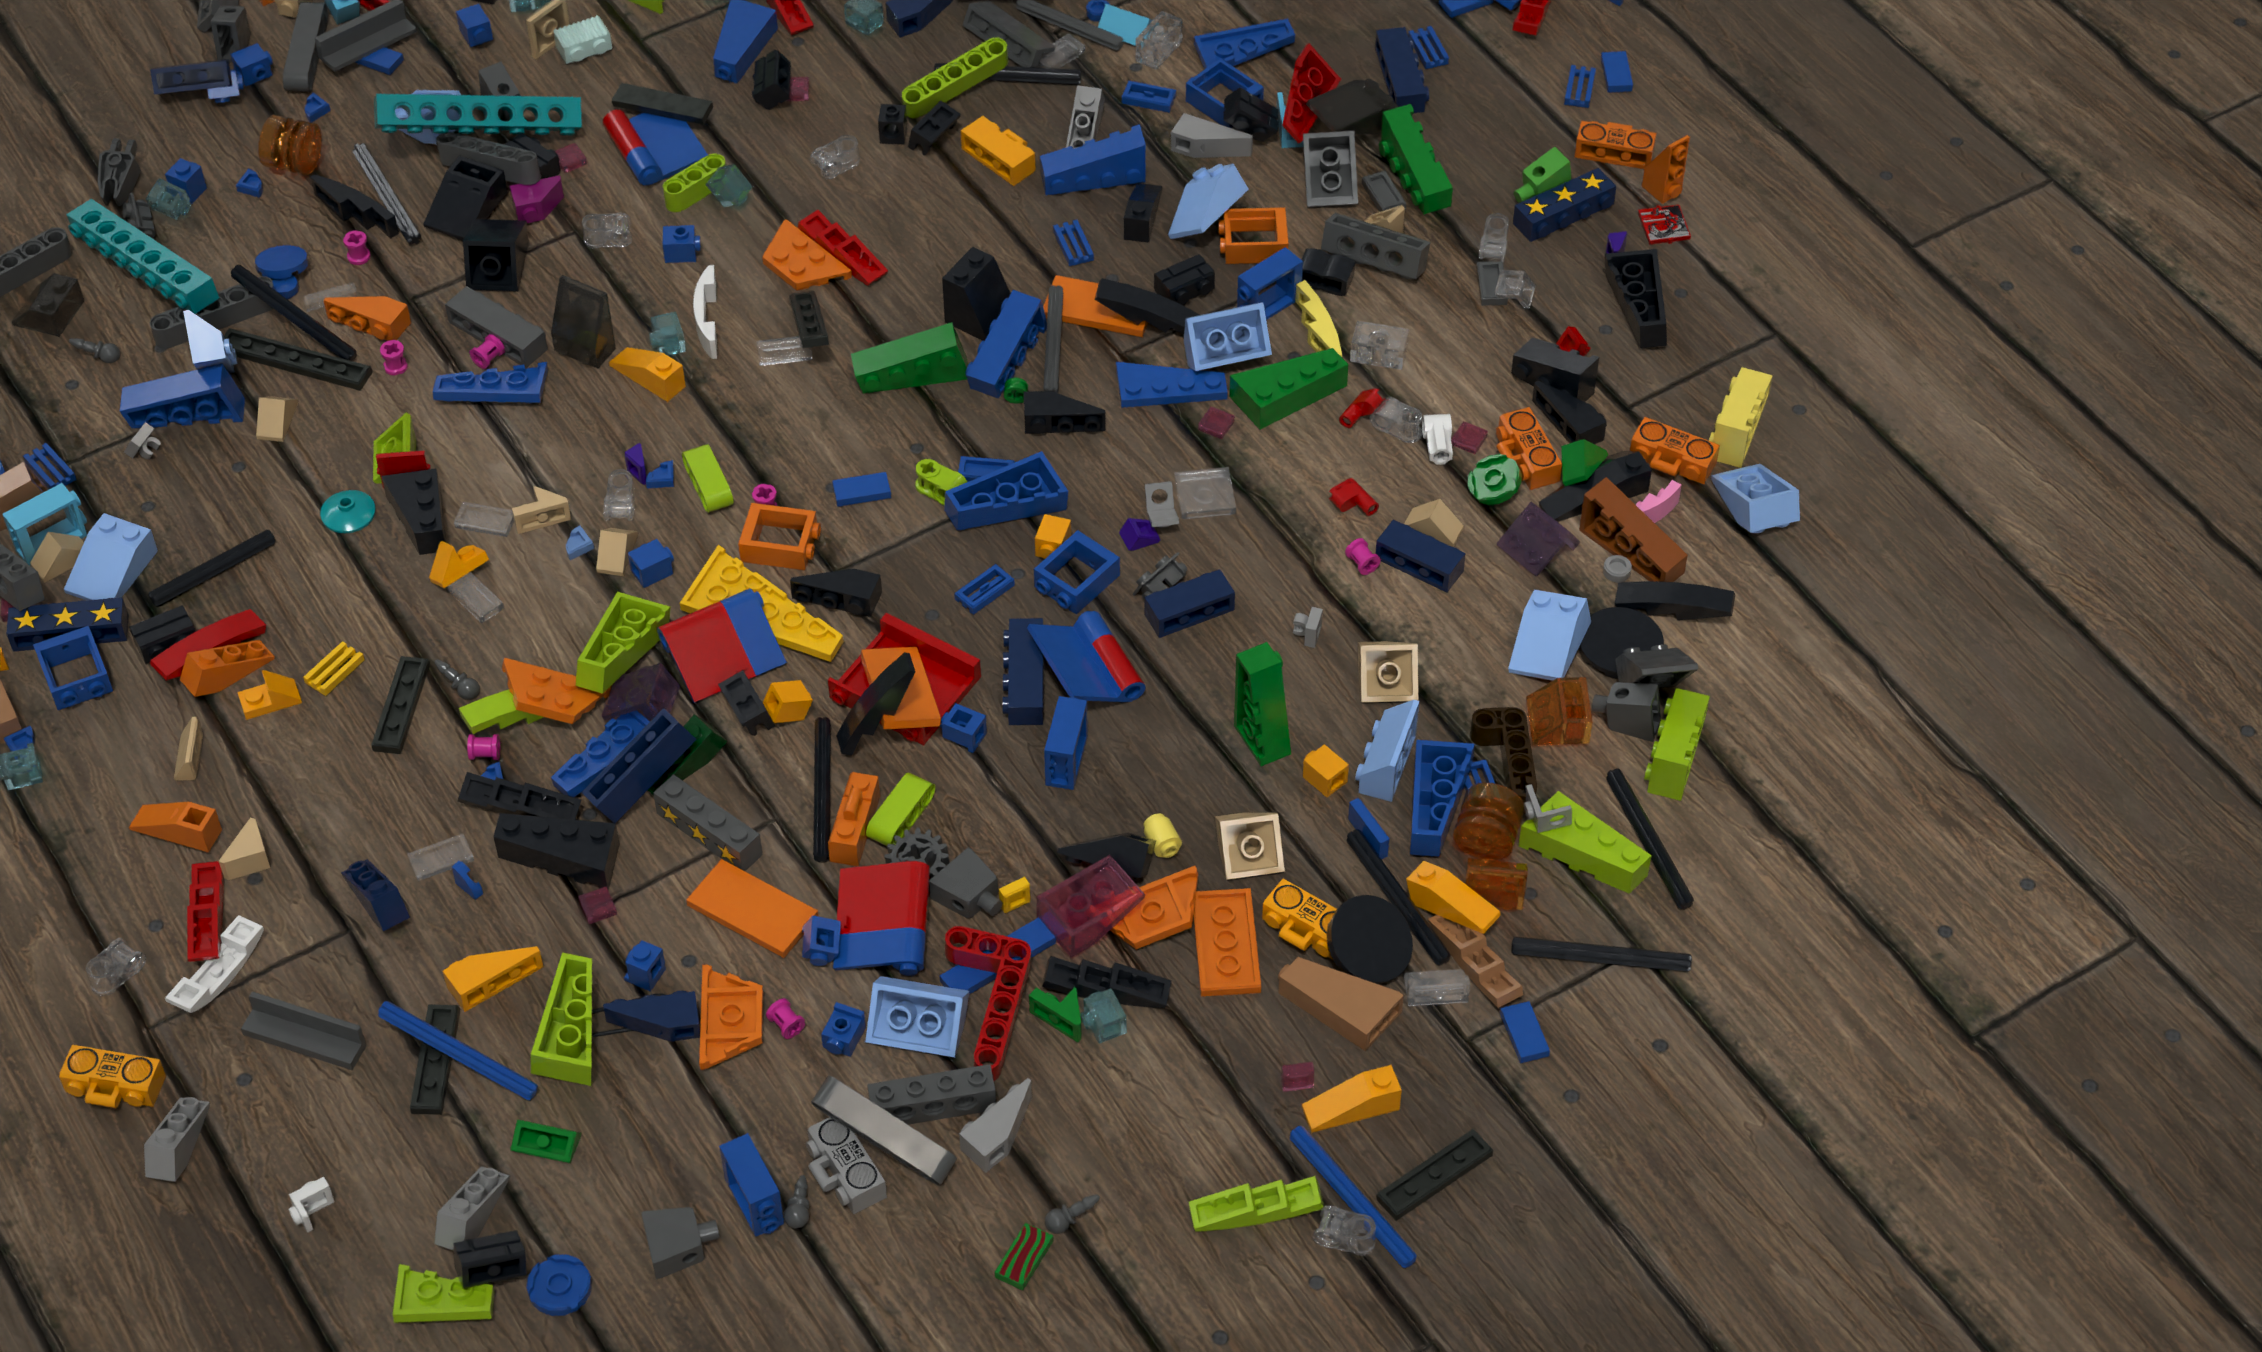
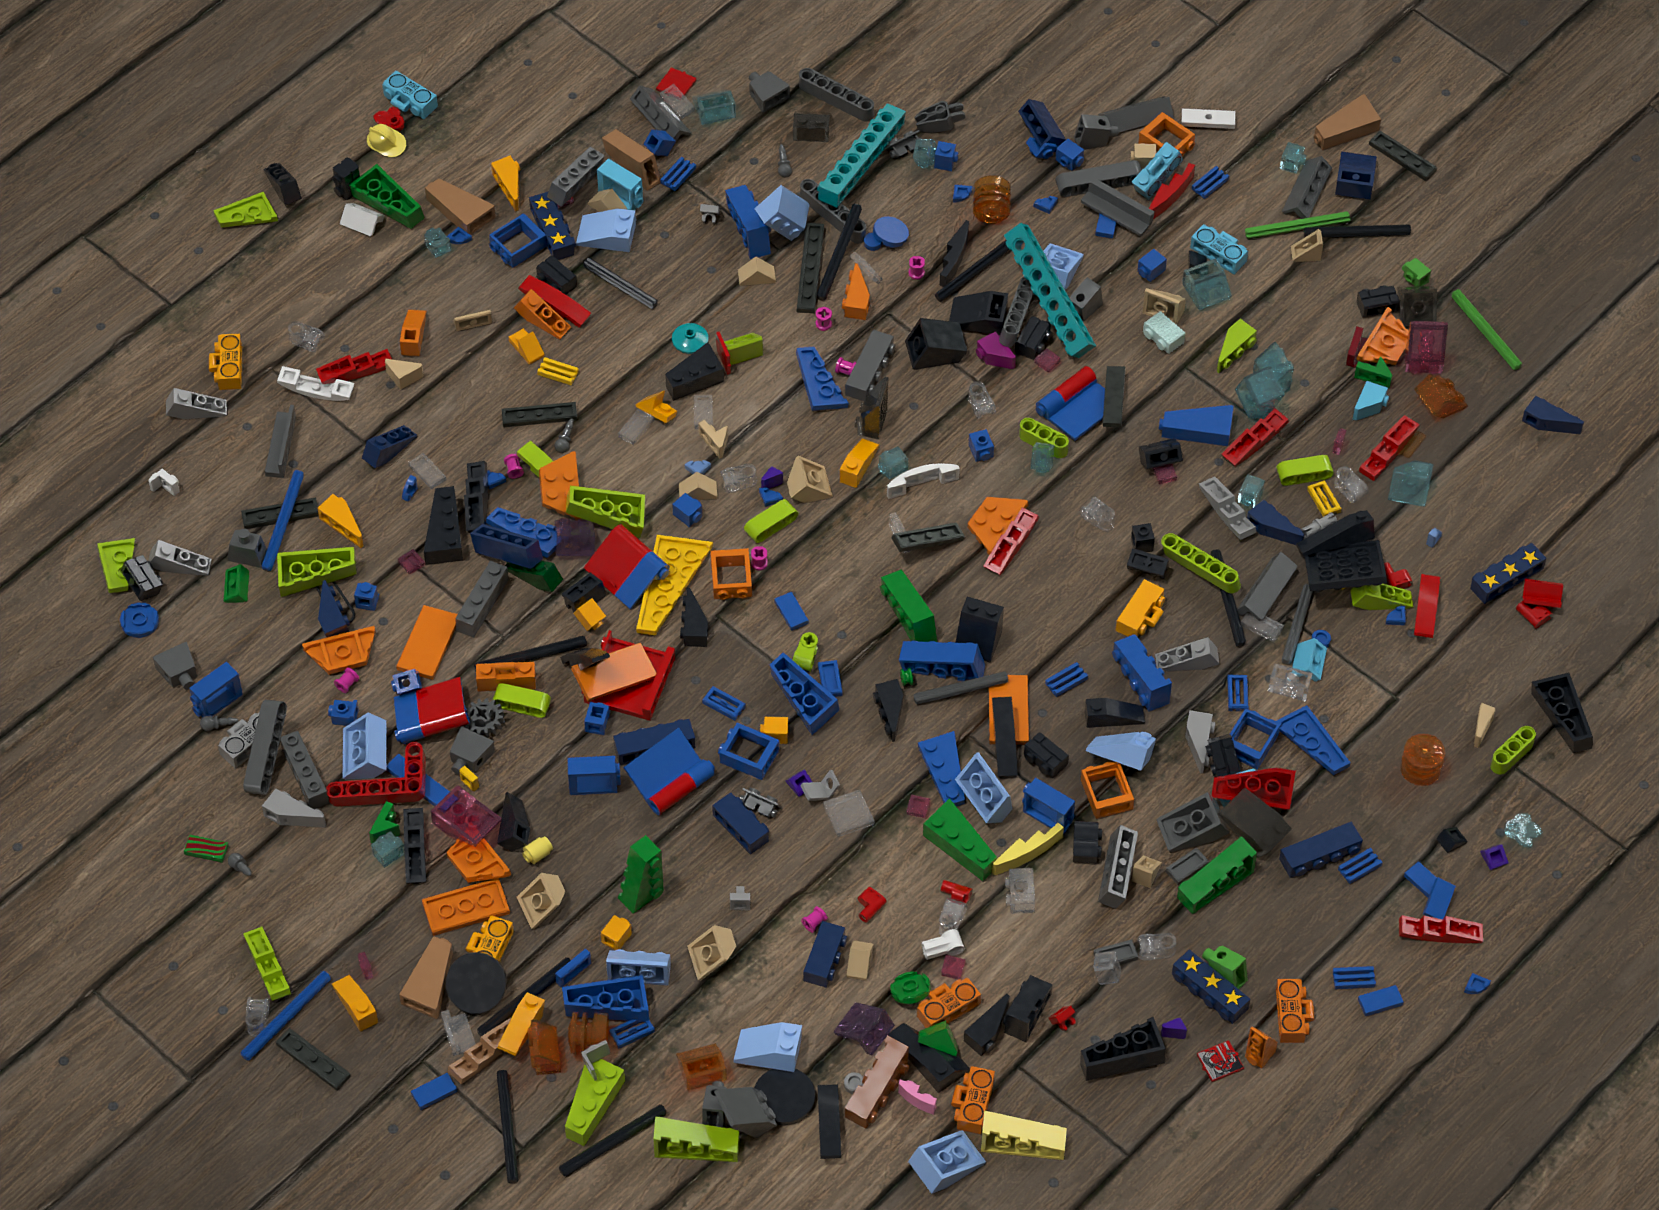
camera: 75 degrees right, 5 degrees up
(492, 1107) = (247, 548): none -> dark grey torso
(662, 427) = (808, 481): none -> tan slope
(868, 46) = (1229, 511): none -> light grey slope
(1510, 730) = (655, 1041): dark brown beam -> none

